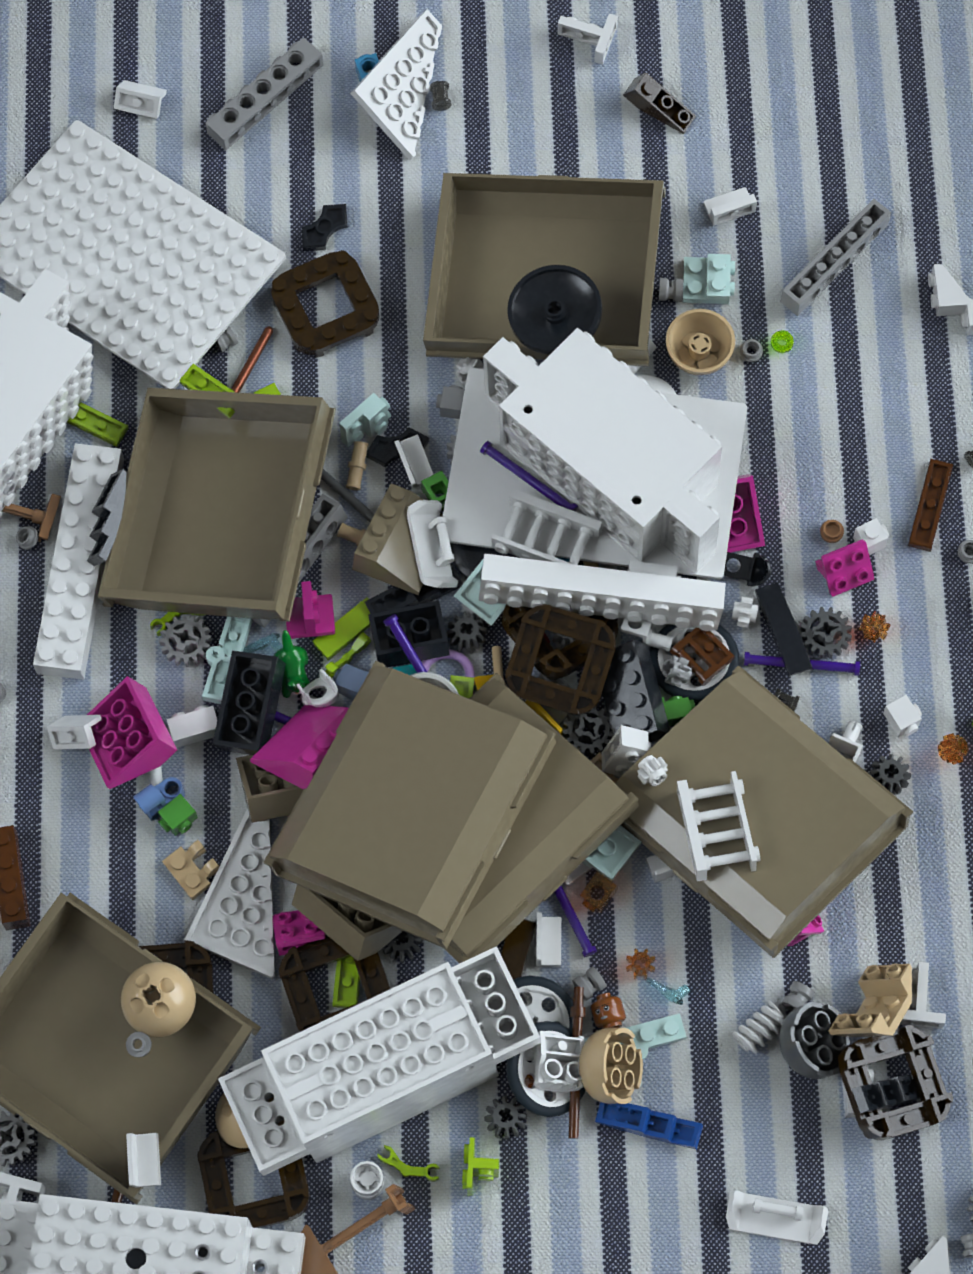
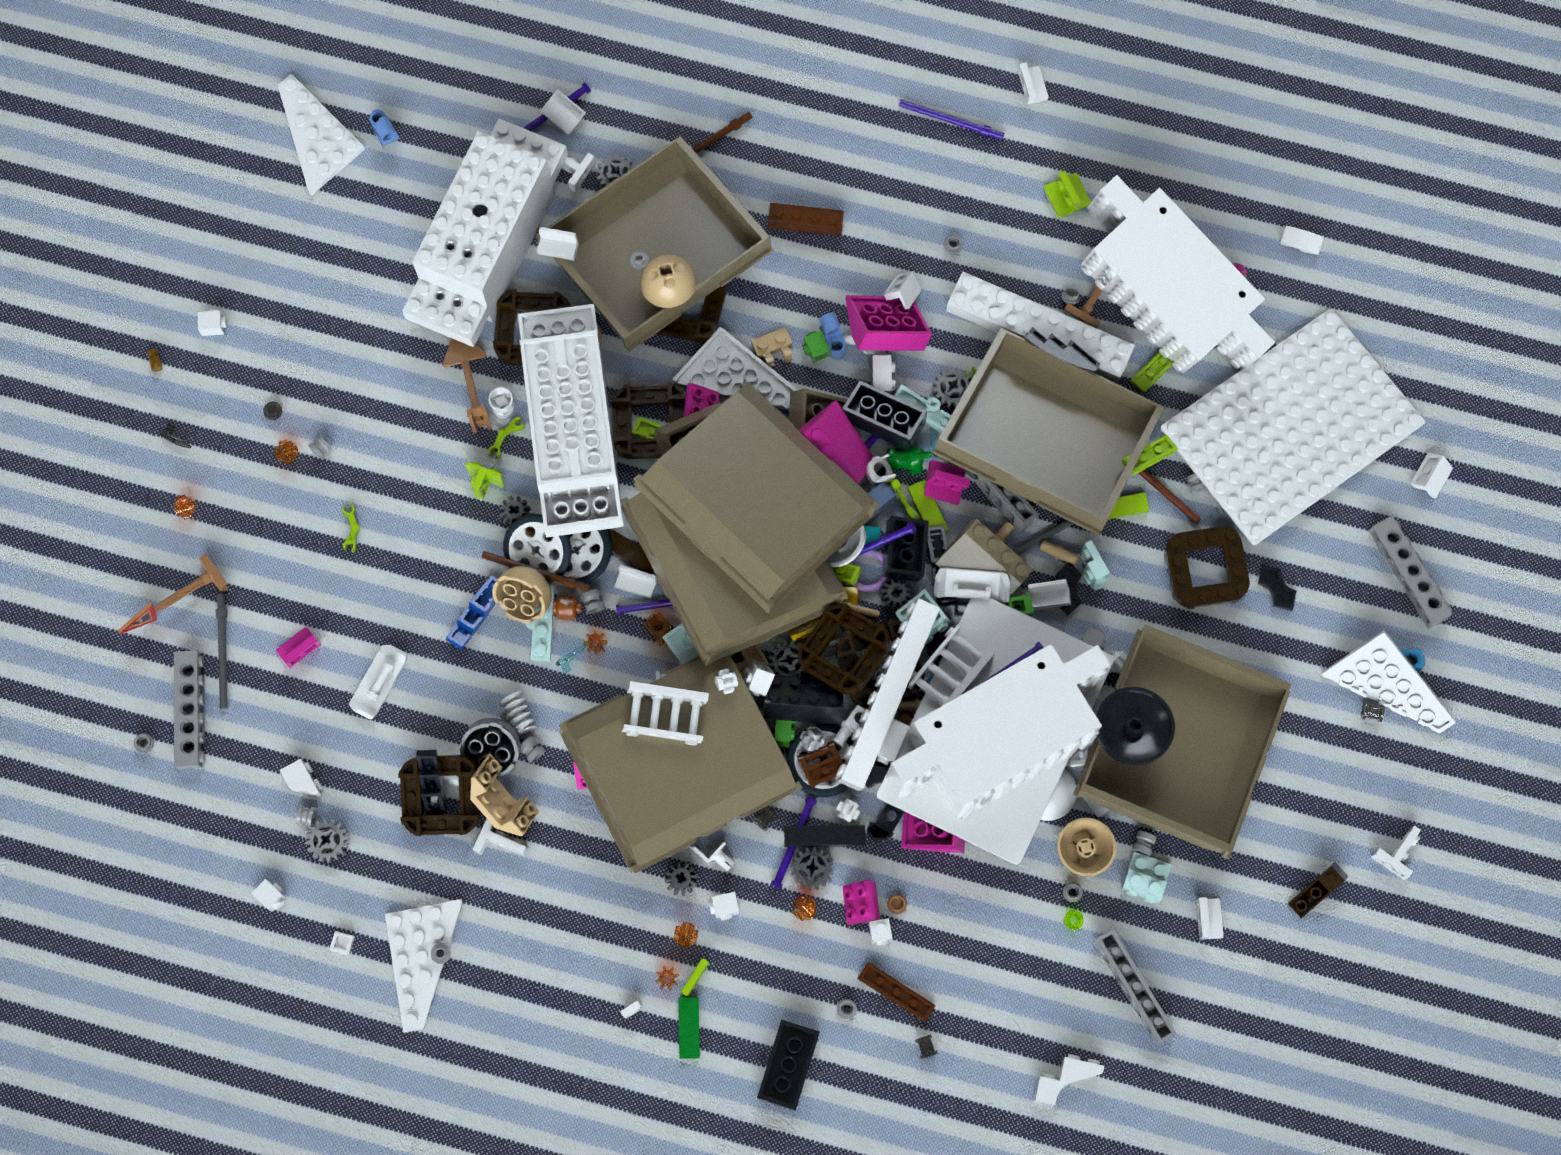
camera: 105 degrees right, 5 degrees up
(558, 1063) = (537, 553): white slope -> none

